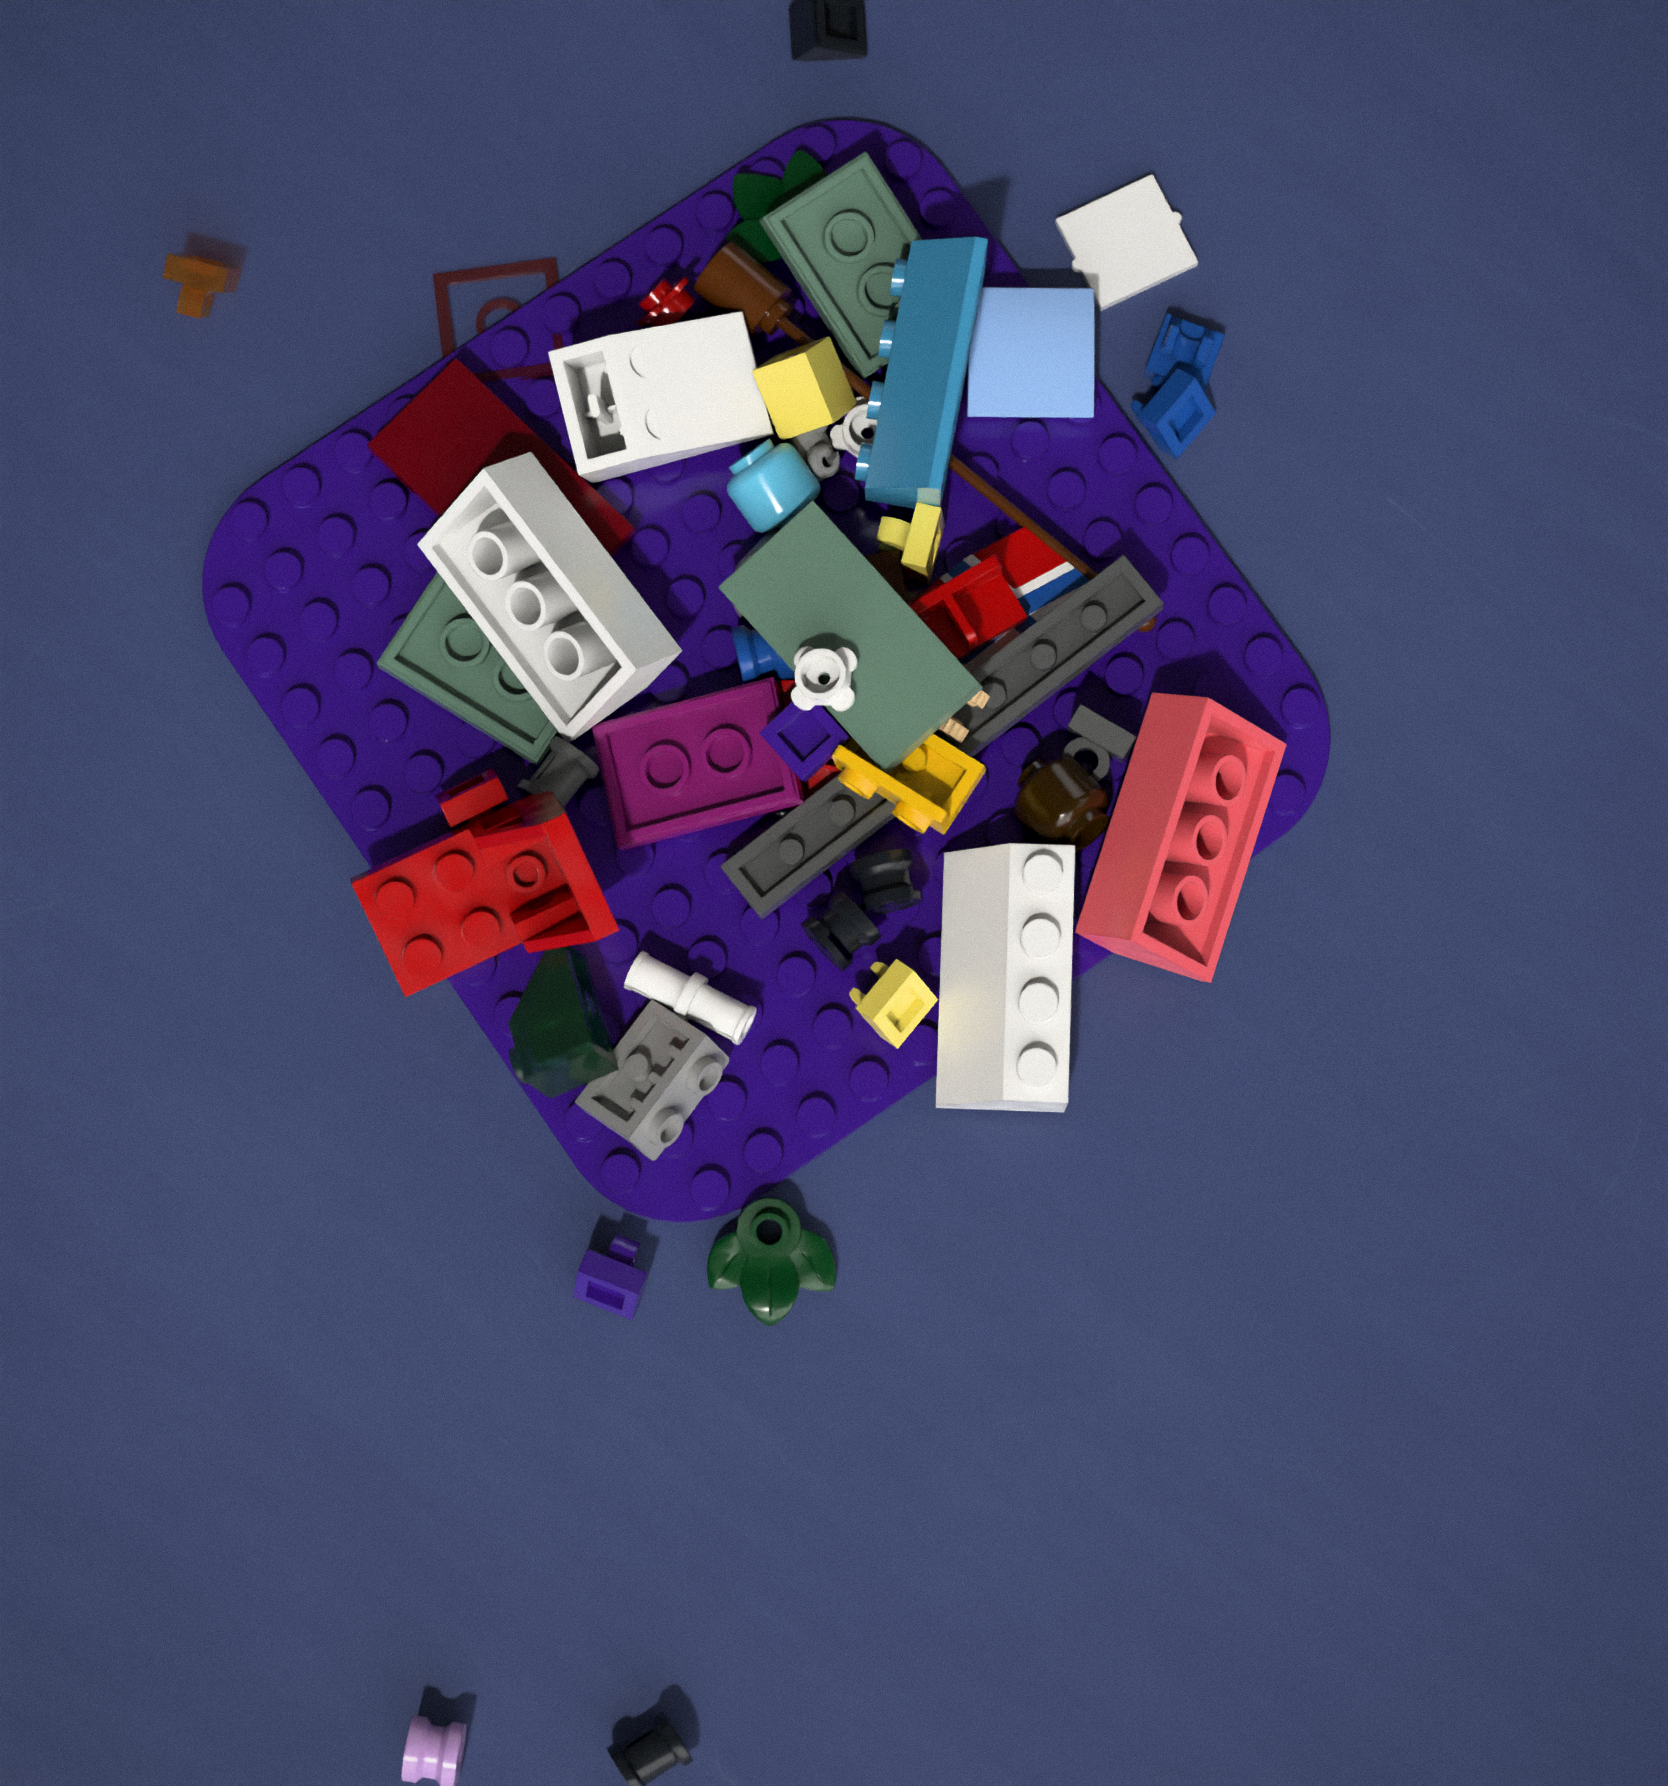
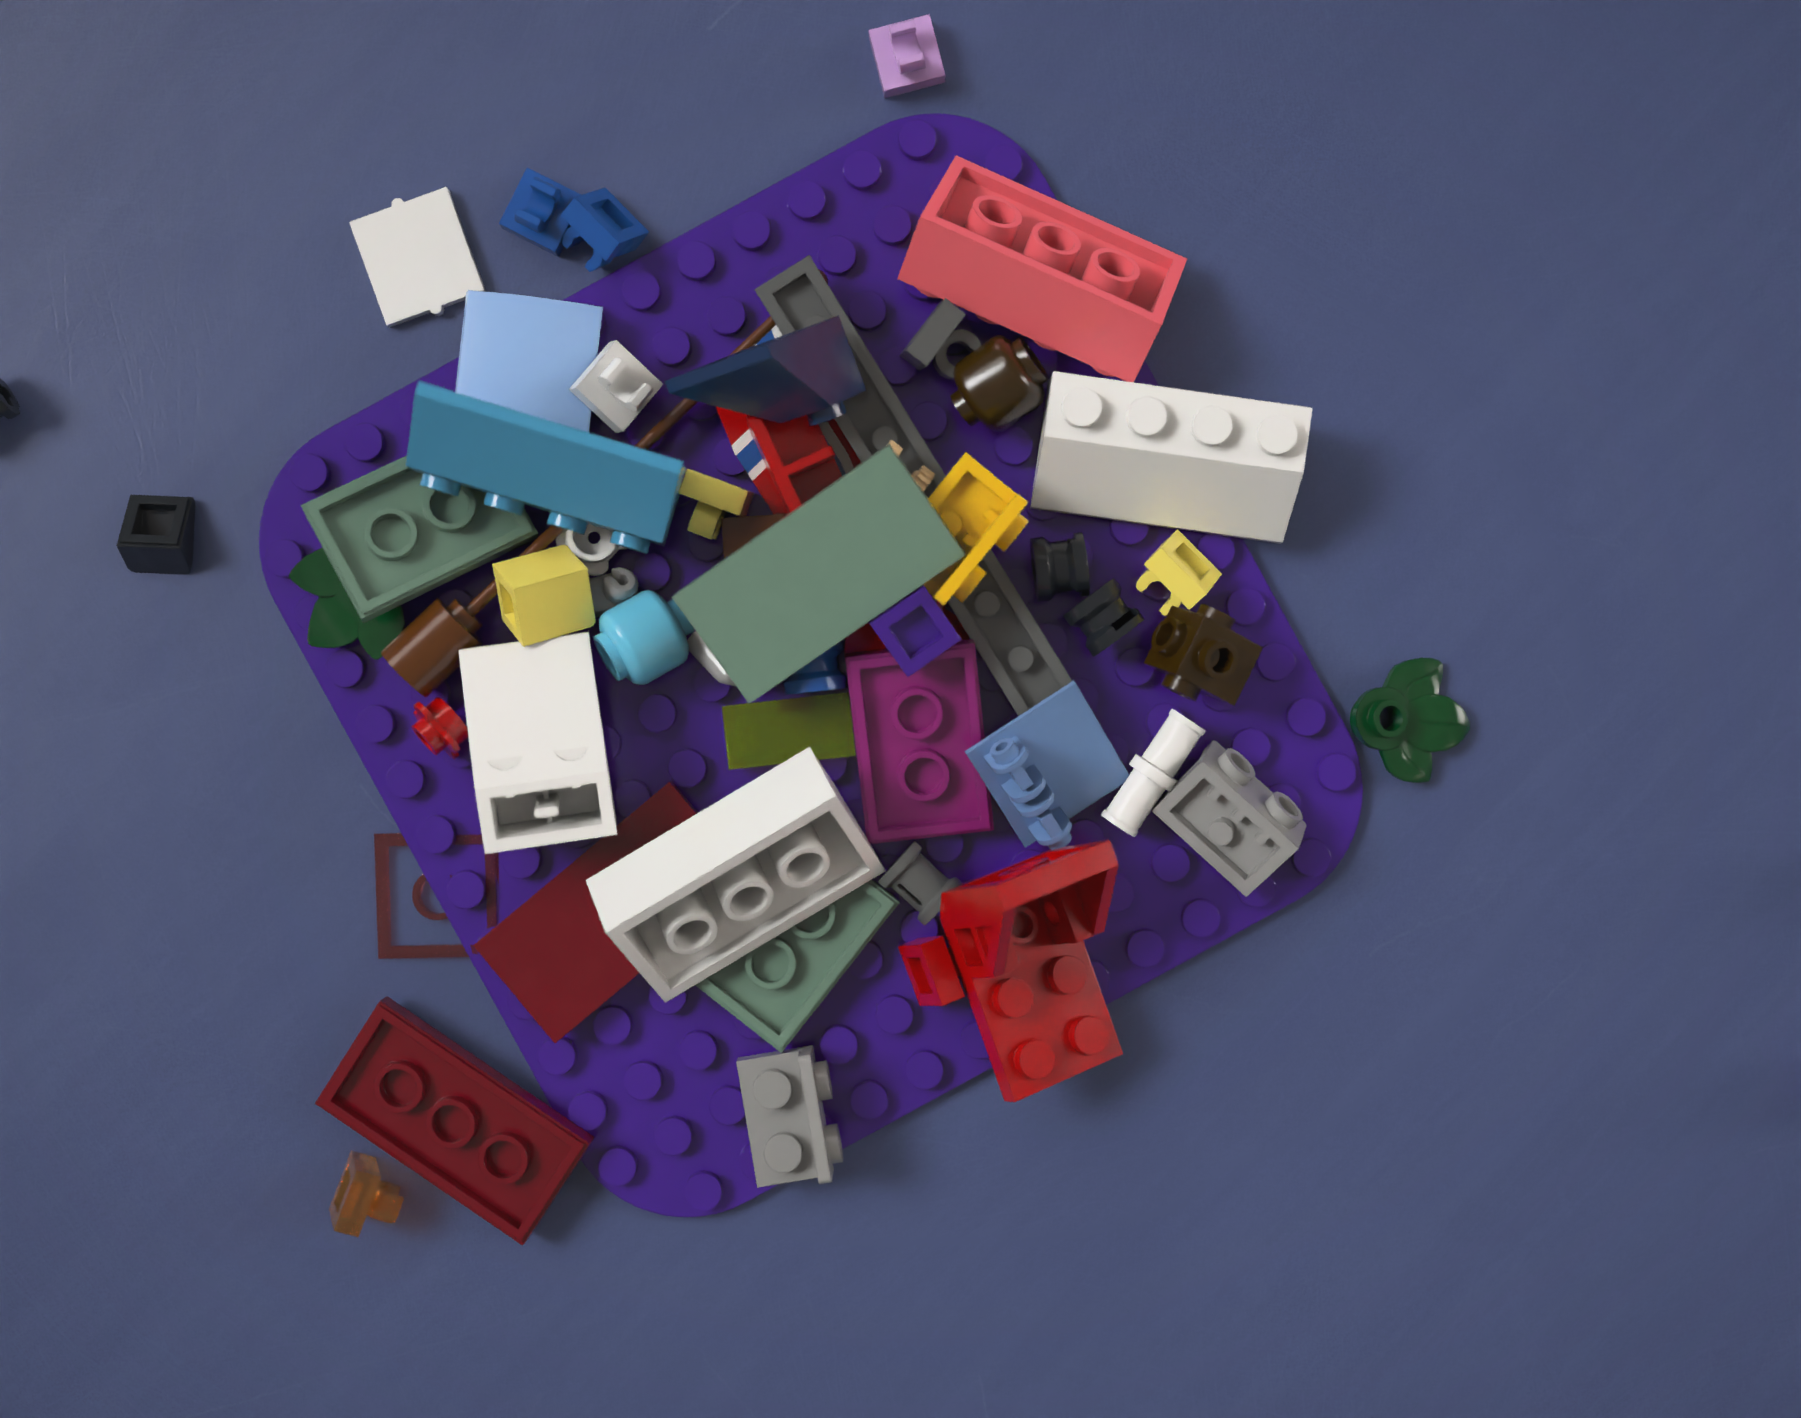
camera: 85 degrees left, 10 degrees up
(280, 361) = (454, 1120): none -> dark red tile
(314, 677) = (787, 1116): none -> light grey bracket
(560, 1026) = (1177, 904): clear green slope -> none
(612, 1279) = (1417, 875): dark purple tile -> none
(686, 890) = (1048, 767): none -> medium blue hinge
(695, 620) = (782, 728): none -> clear neon green tile
(812, 1026) = (1202, 654): none -> dark brown brick
(813, 663) = (848, 615): white plate -> none
(1016, 437) = (616, 386): none -> white tile
(1036, 581) = (781, 378): none -> dark blue slope
(1382, 690) = (907, 56): none -> lavender tile

